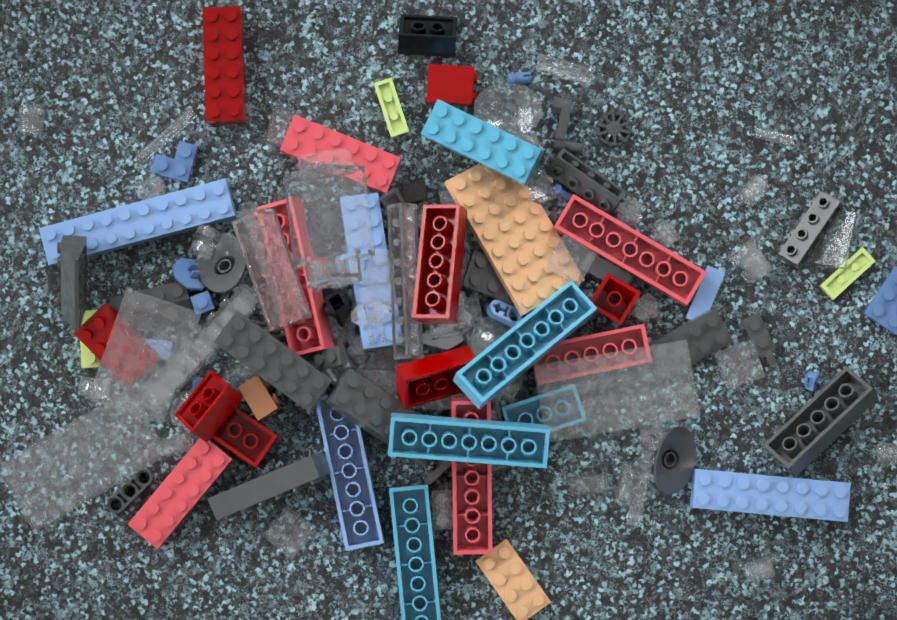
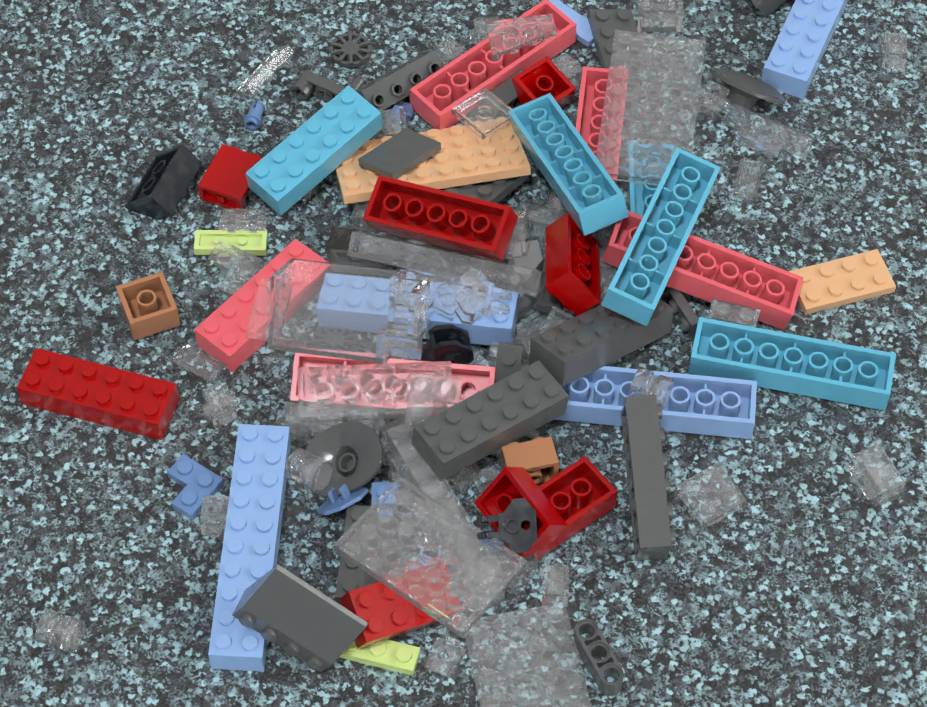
camera: 75 degrees left, 30 degrees down
(166, 135) = (154, 487): clear axle -> none
(180, 406) = (510, 526): none -> black hinge
(181, 492) = (619, 597): coral brick -> none
(244, 156) = (219, 404): none -> clear brick
(275, 309) = (426, 390): none -> clear plate
(308, 70) = (148, 305): none -> nougat brick
(342, 468) = (647, 384): none -> clear wheel
(369, 124) = (237, 262): none -> clear plate
(416, 107) = (243, 220): none -> clear plate
(501, 316) = (525, 191): light blue beam -> none
(504, 209) = (399, 154): none -> dark grey tile
(509, 107) = (280, 119): clear hat -> none
(657, 261) = (514, 33): none -> clear wing

